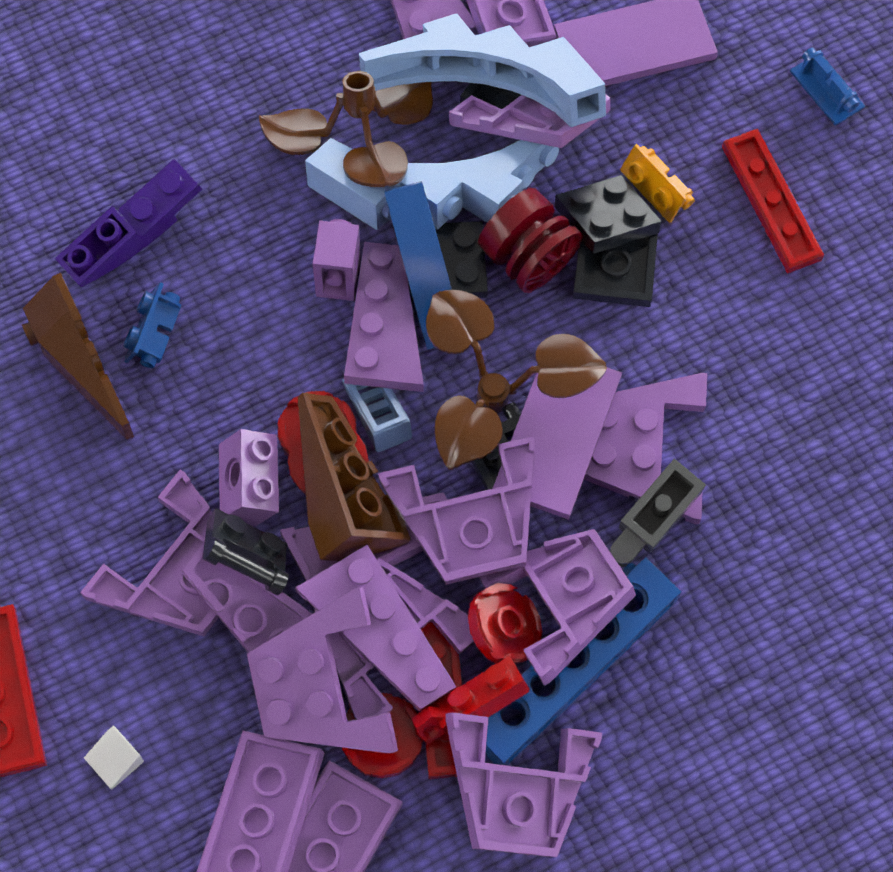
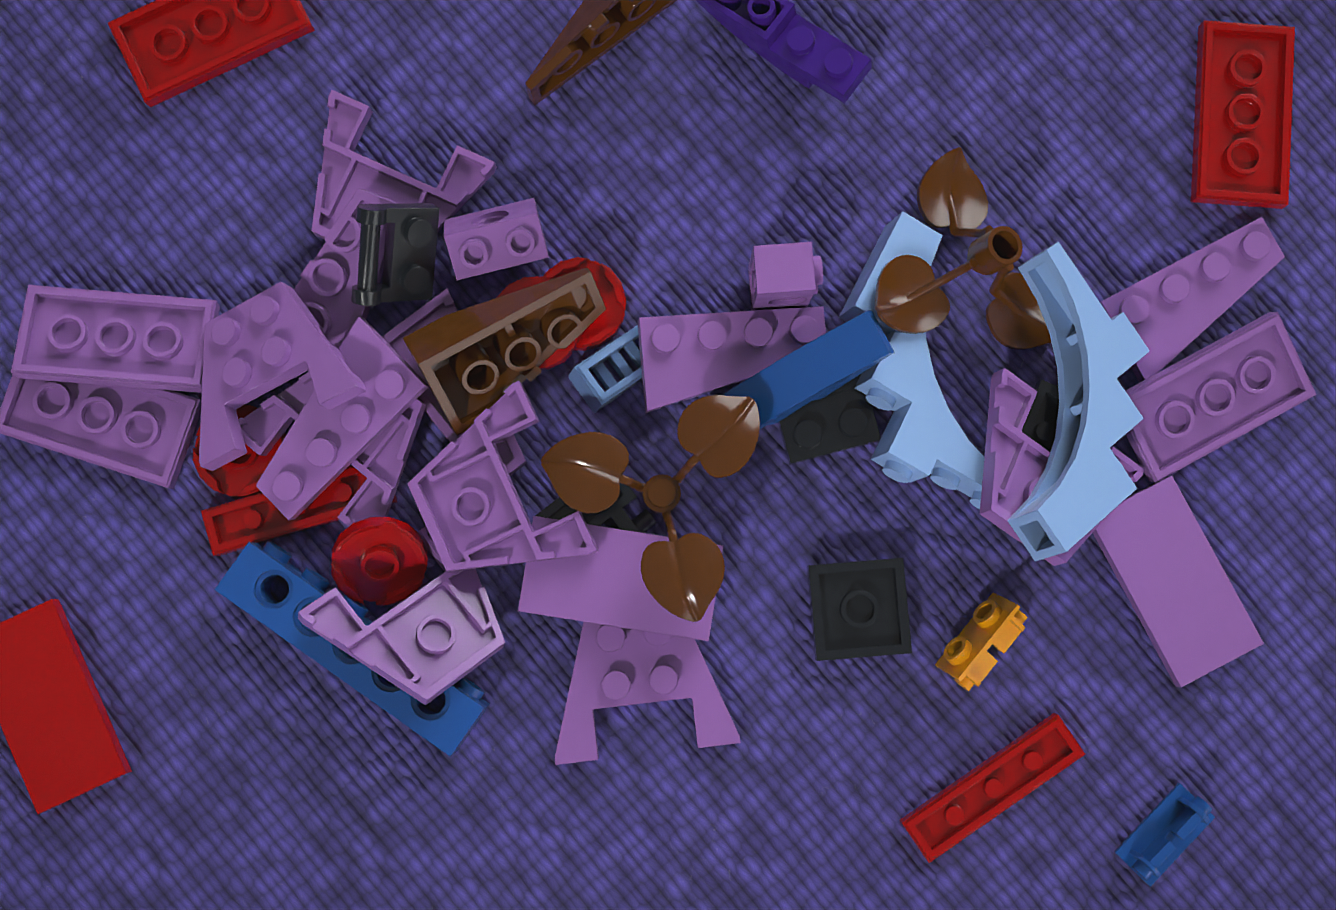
camera: 80 degrees right, 15 degrees up
(113, 757) = (166, 173): white slope -> none
(155, 312) = (646, 87): blue hinge -> none
(479, 697) = (278, 543): red hinge -> none
(517, 806) = (175, 614): medium lavender wing -> none
(529, 240) = (857, 499): dark red wheel -> none
(608, 214) = (919, 587): black plate -> none
(656, 512) = (536, 711): dark grey brick -> none

